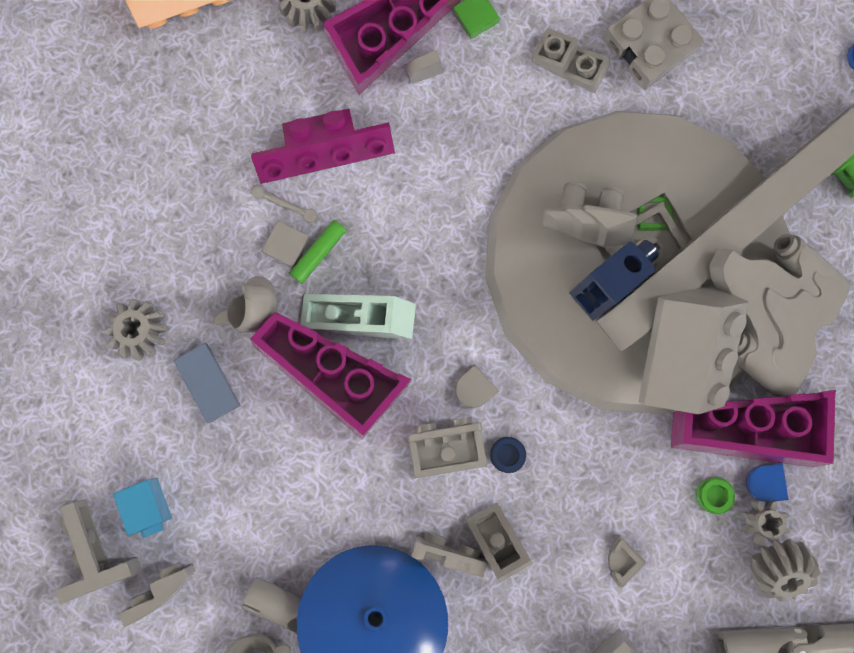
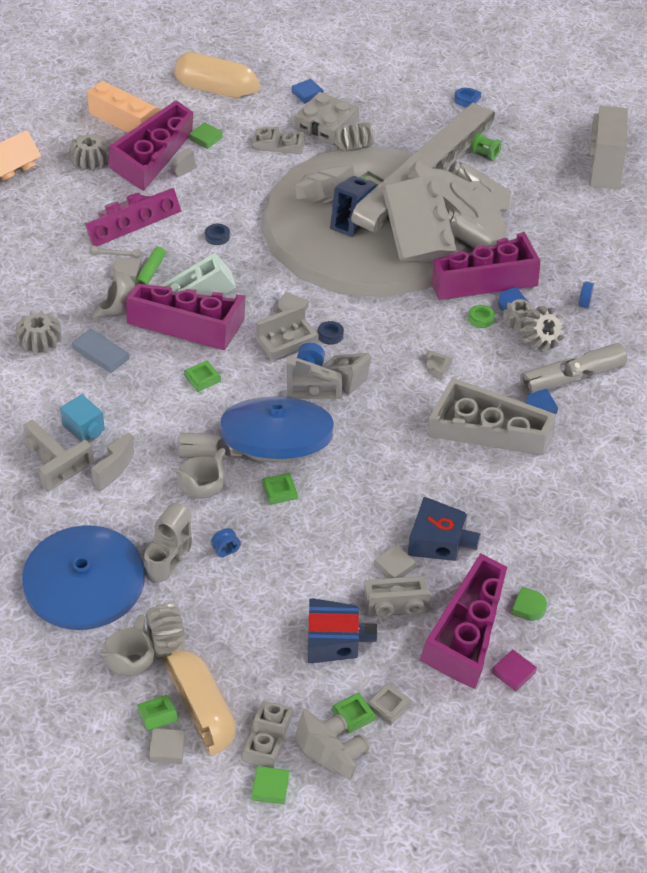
camera: 20 degrees left, 35 degrees down
(319, 473) = (202, 376): none -> bright green tile
(425, 217) = (217, 234): none -> dark blue tile
(463, 500) = (311, 353): none -> blue tile
(674, 102) = (354, 136): none -> light grey gear

